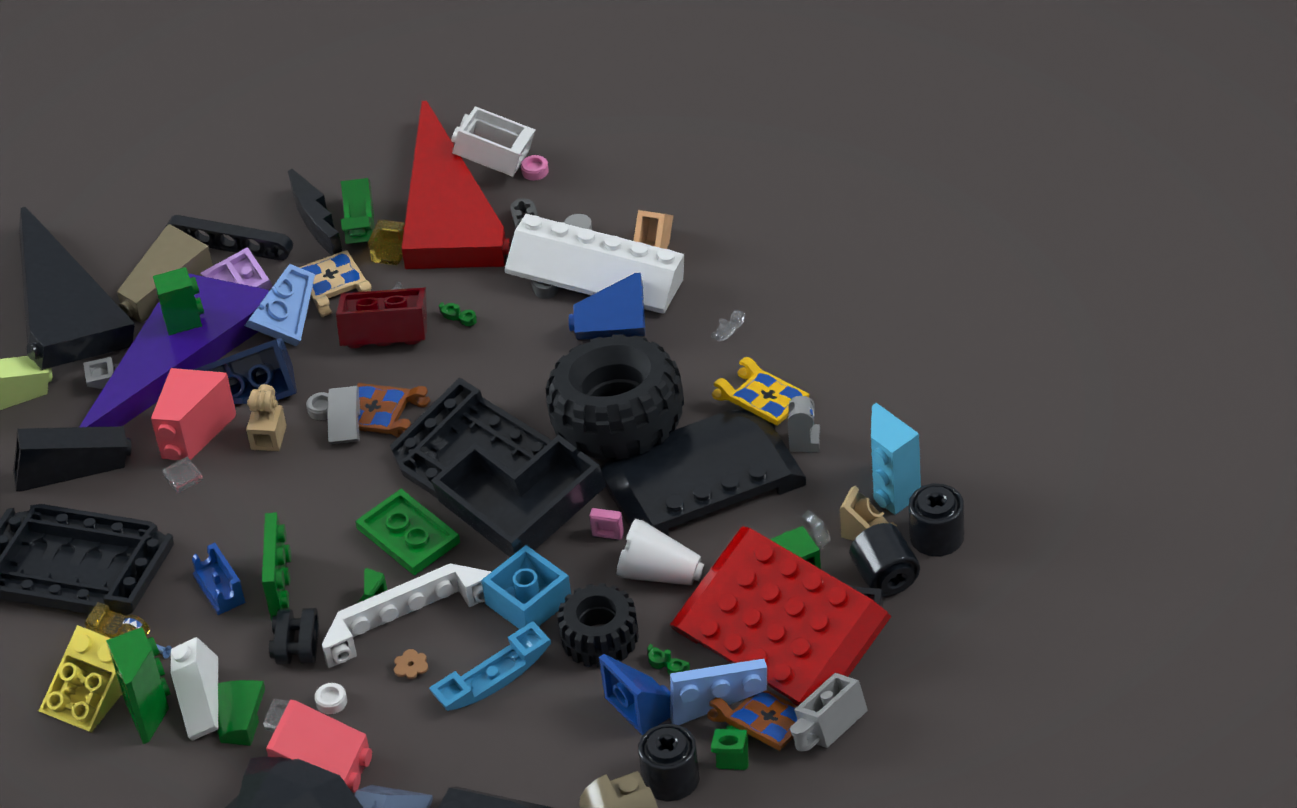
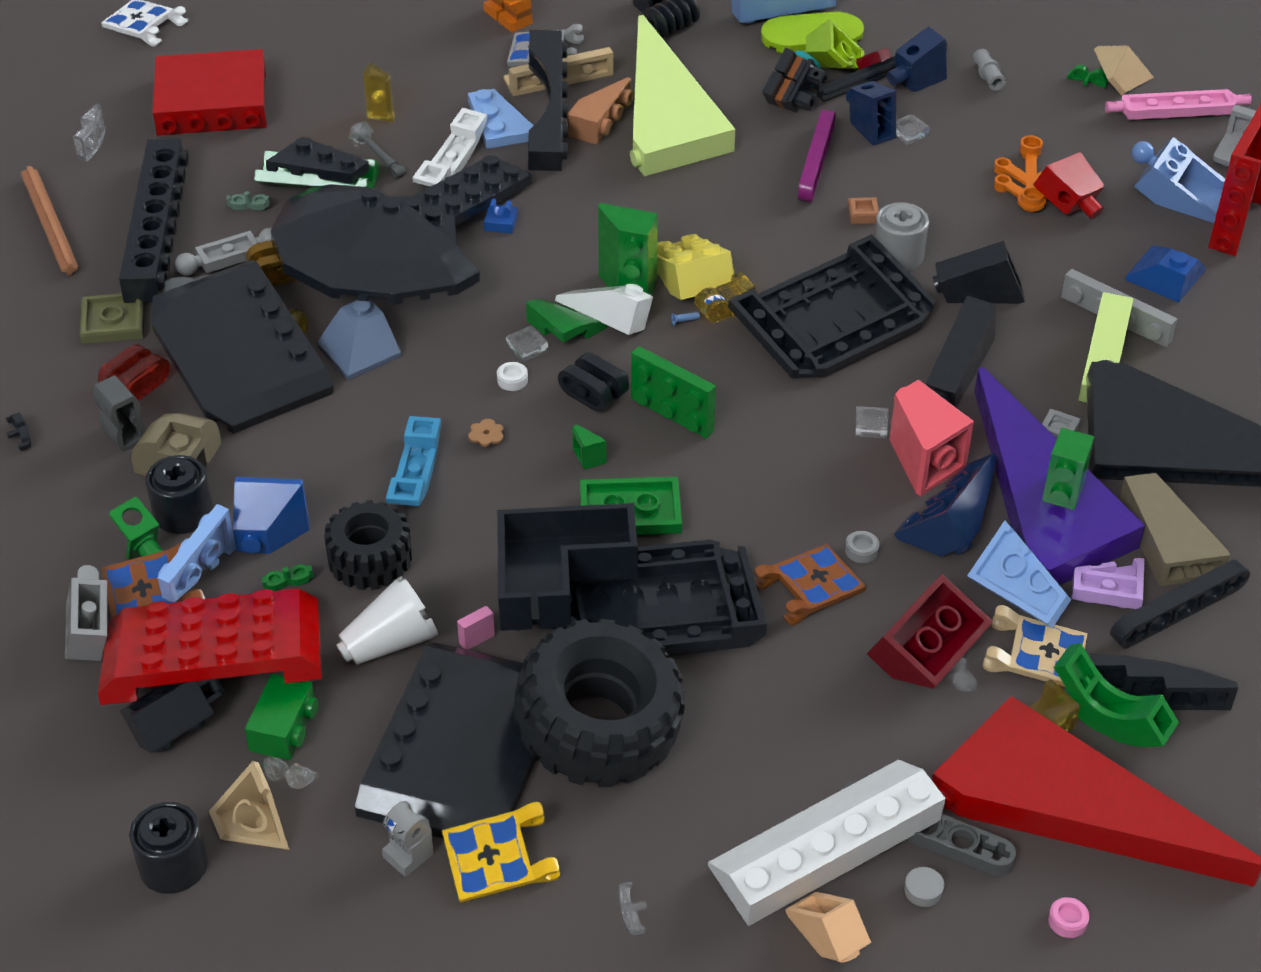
camera: 125 degrees right, 0 degrees up
(218, 580) = (727, 380): blue hinge -> none
(266, 420) = (867, 484): tan brick -> none
(321, 742) = (452, 322): coral slope -> none
(343, 415) = (825, 540): light grey slope -> none
(399, 601) = (561, 407): white slope -> none
(452, 312) = (894, 709): green piece -> none
(512, 139) = (1093, 897): white window -> none
(526, 588) = (458, 521): dark azure slope -> none
(611, 311) = (736, 802): blue slope -> none
(884, 559) = (175, 770): black piece -> none
(893, 460) = (260, 841): medium azure slope -> none

